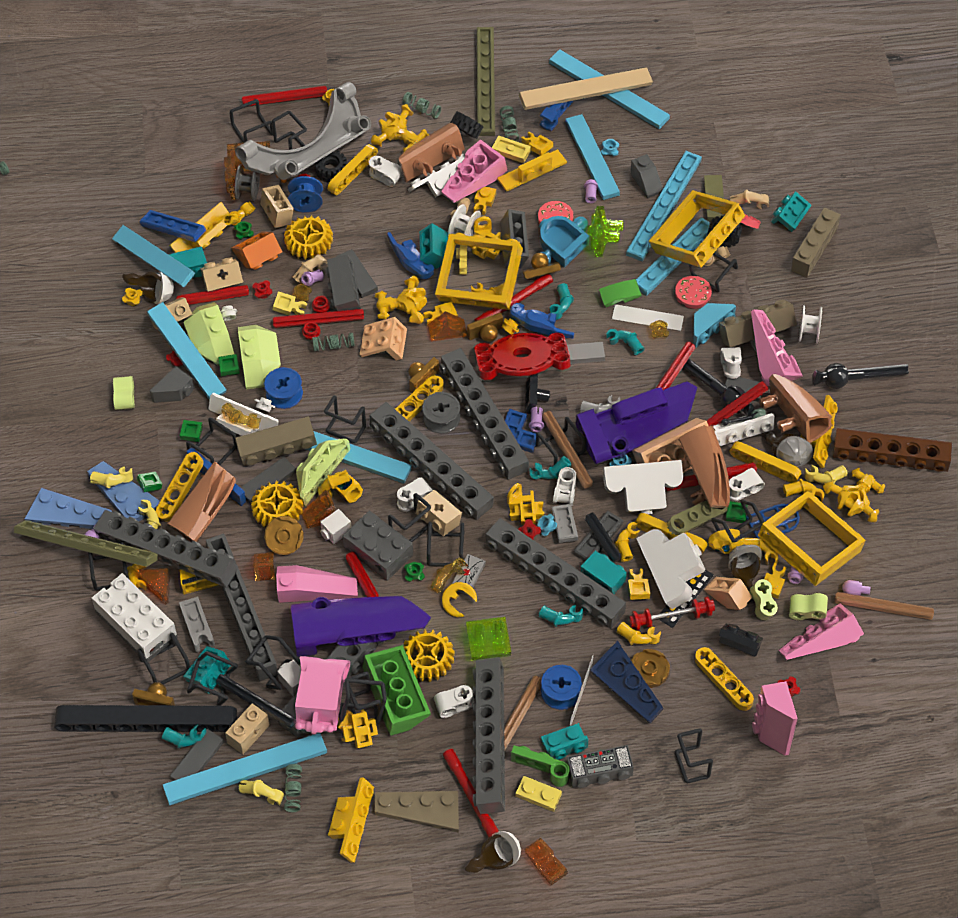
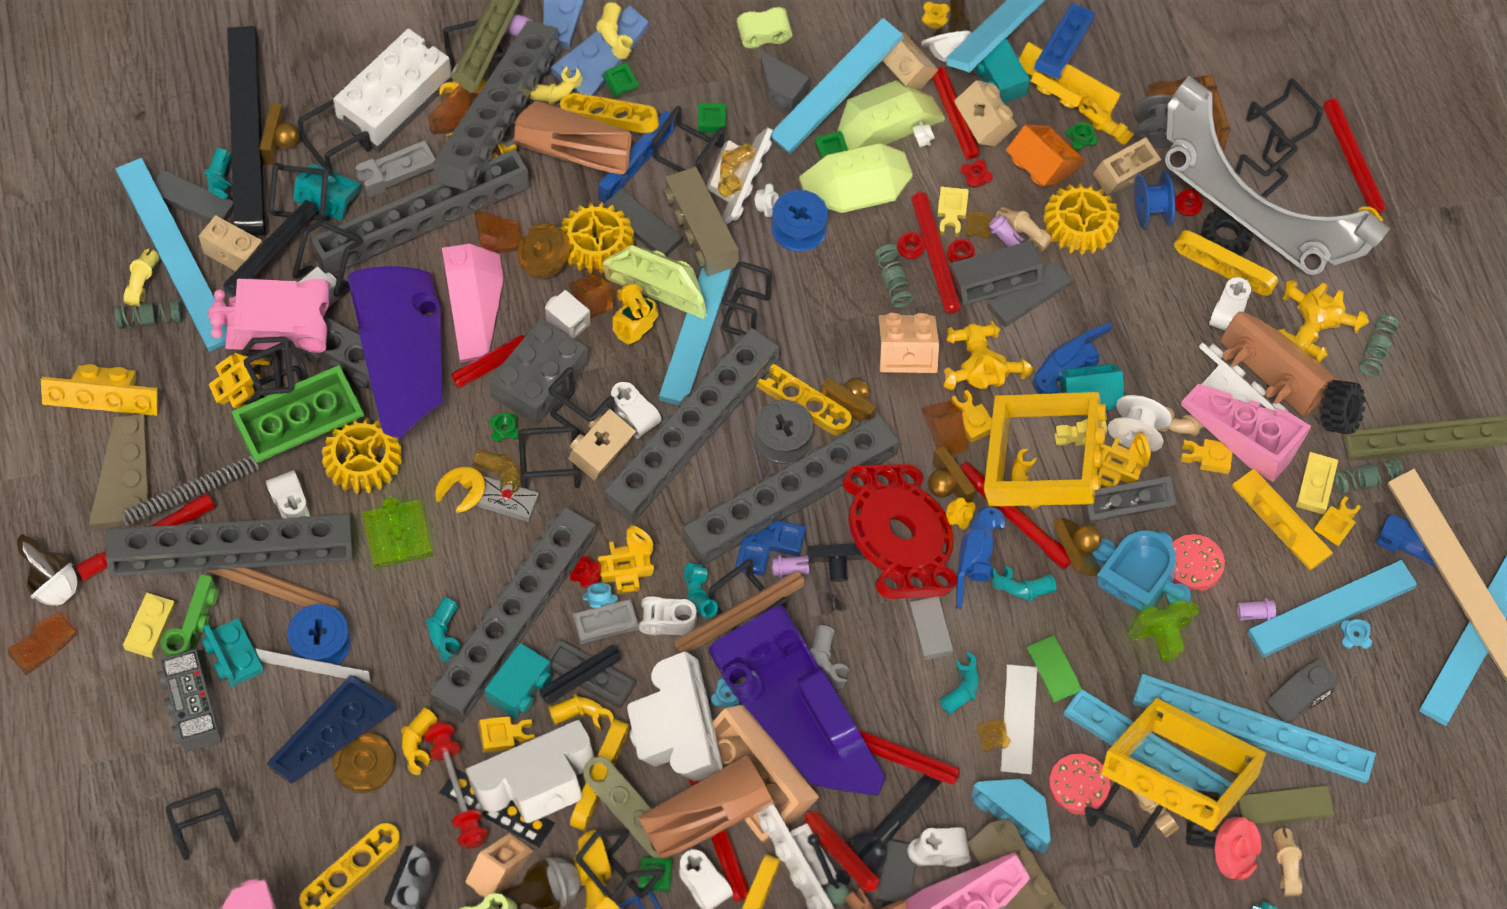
camera: 80 degrees right, 5 degrees up
(438, 763) = (150, 503): none -> light grey piece

